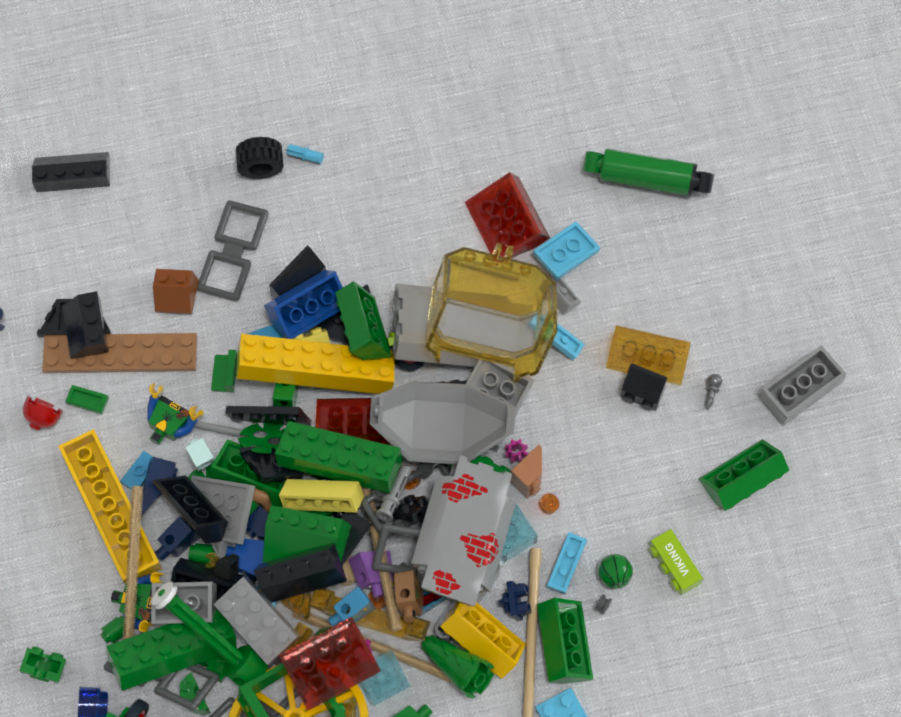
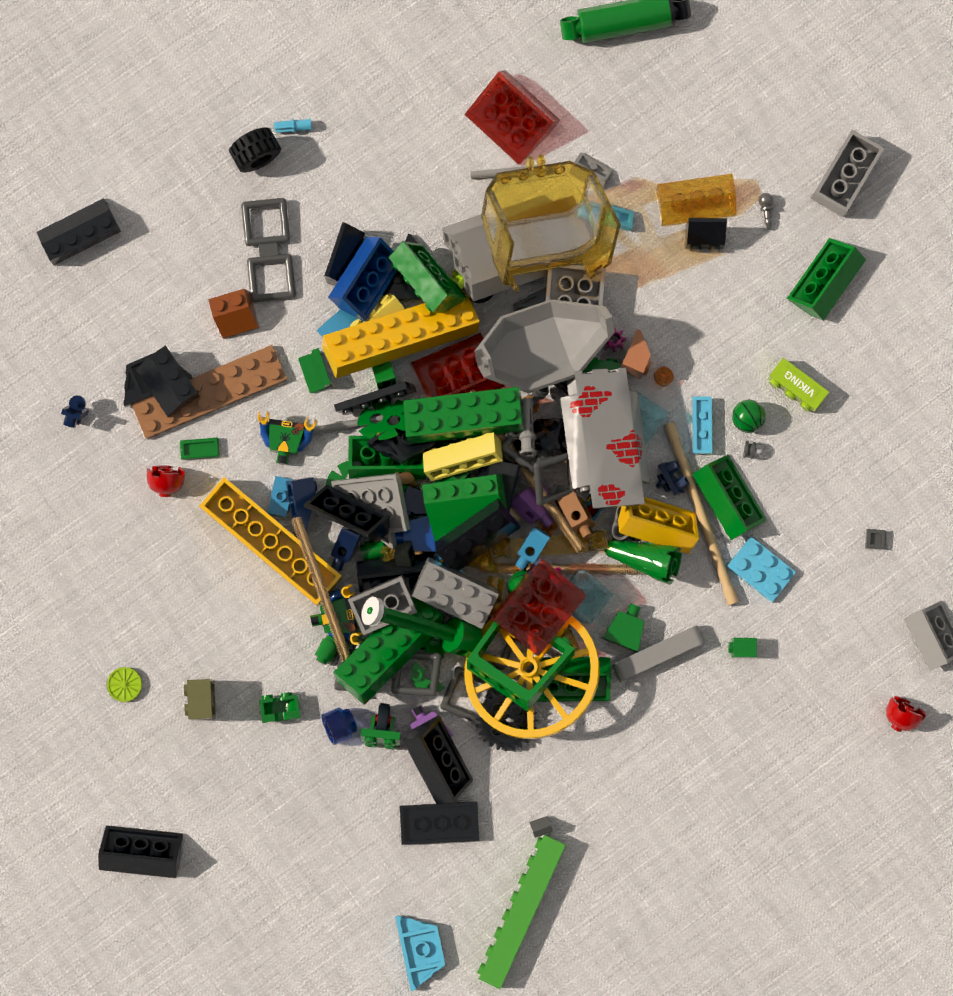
camera: 25 degrees left, 15 degrees up
(199, 454) = (331, 461): light aqua slope -> none
(566, 250) = (580, 126): medium azure plate -> none

